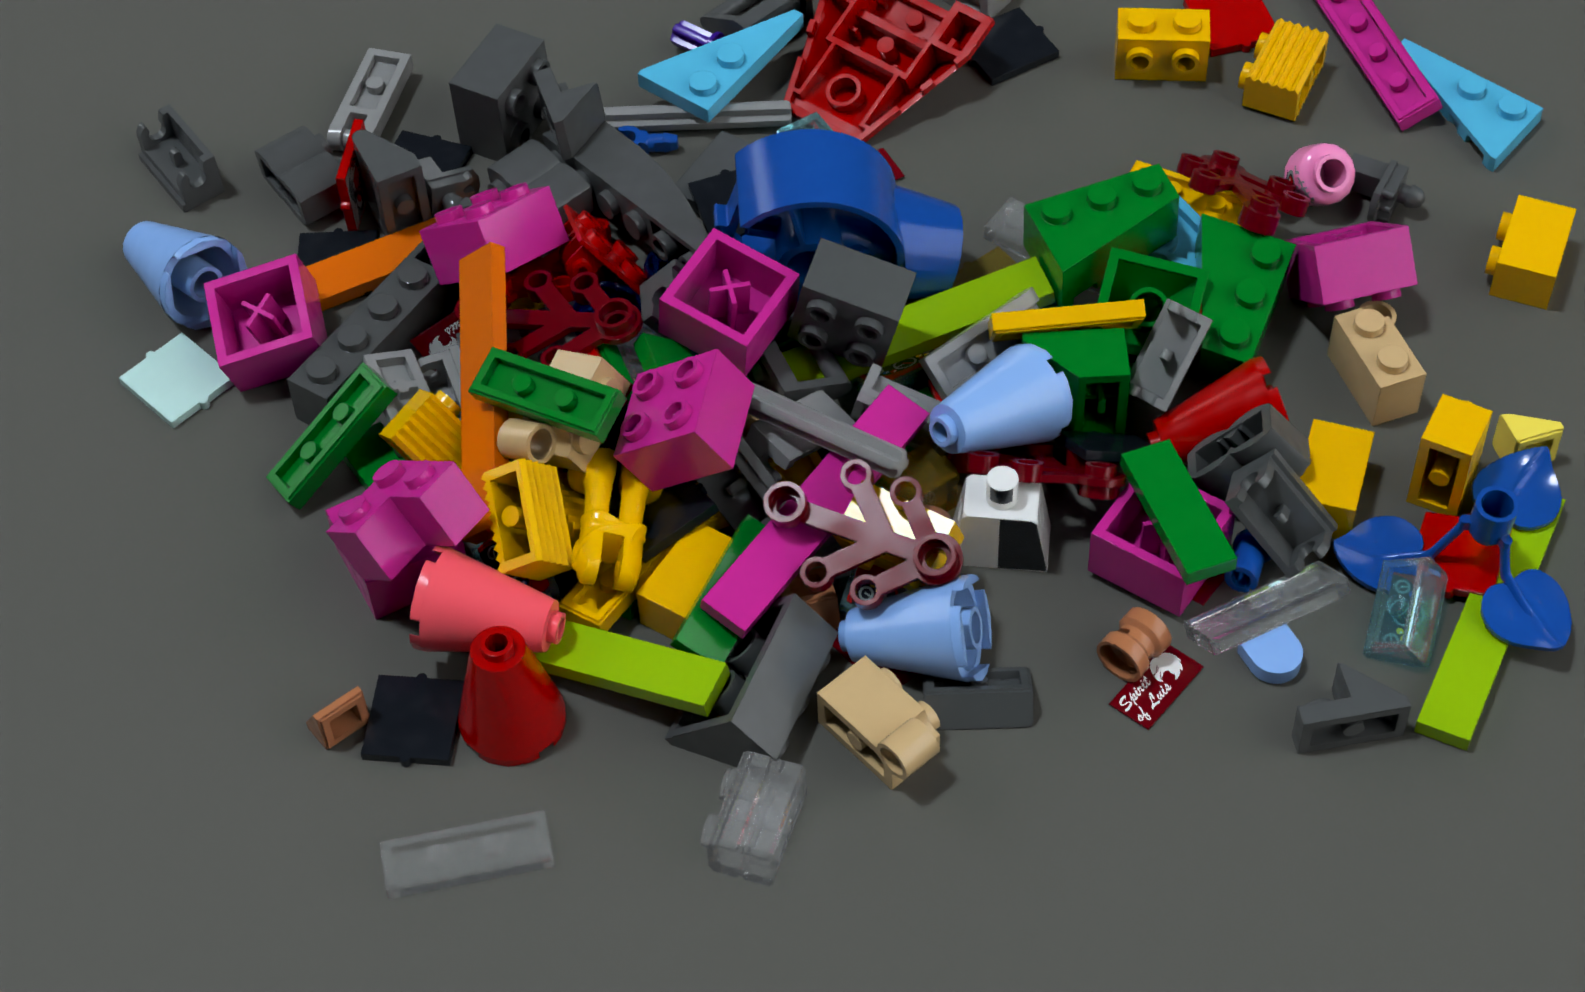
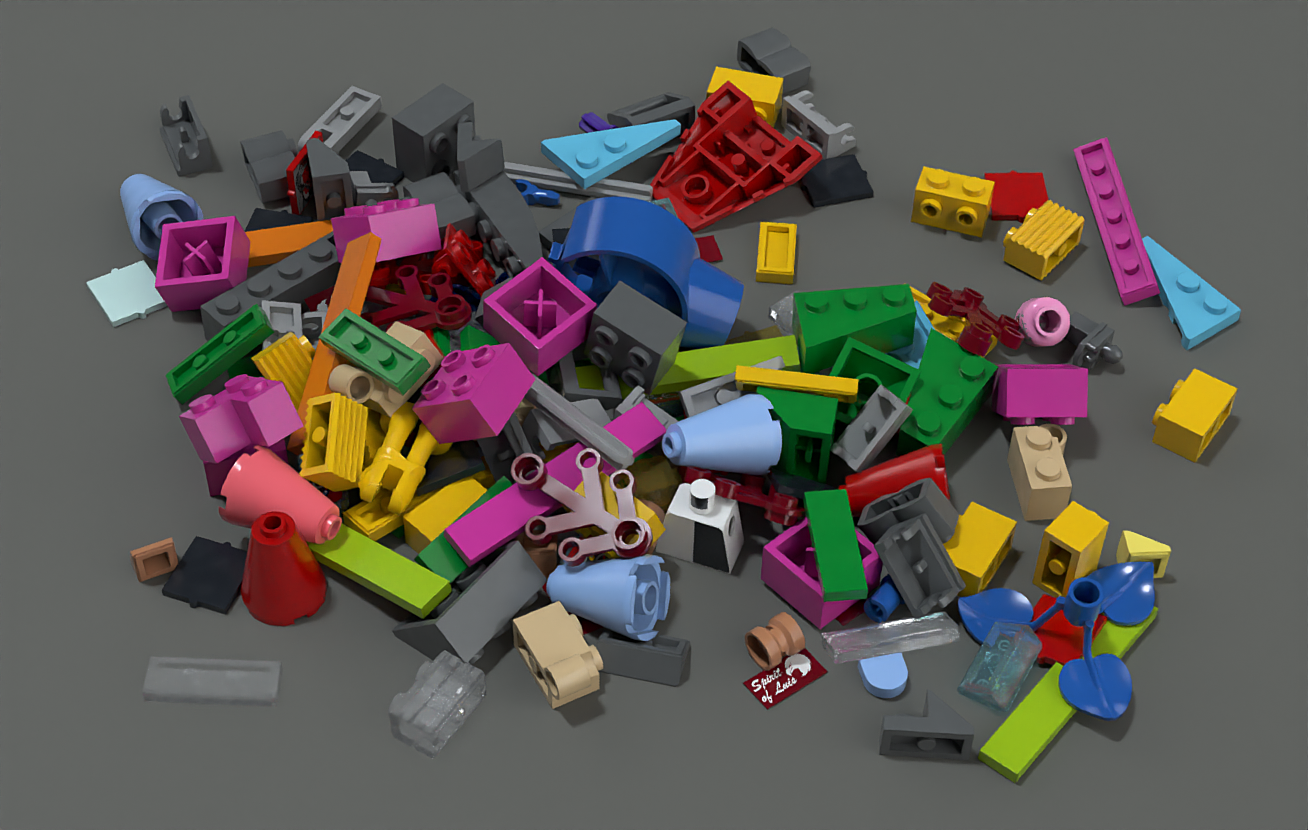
camera: 10 degrees right, 5 degrees down
(967, 154) = (776, 253): none -> yellow tile

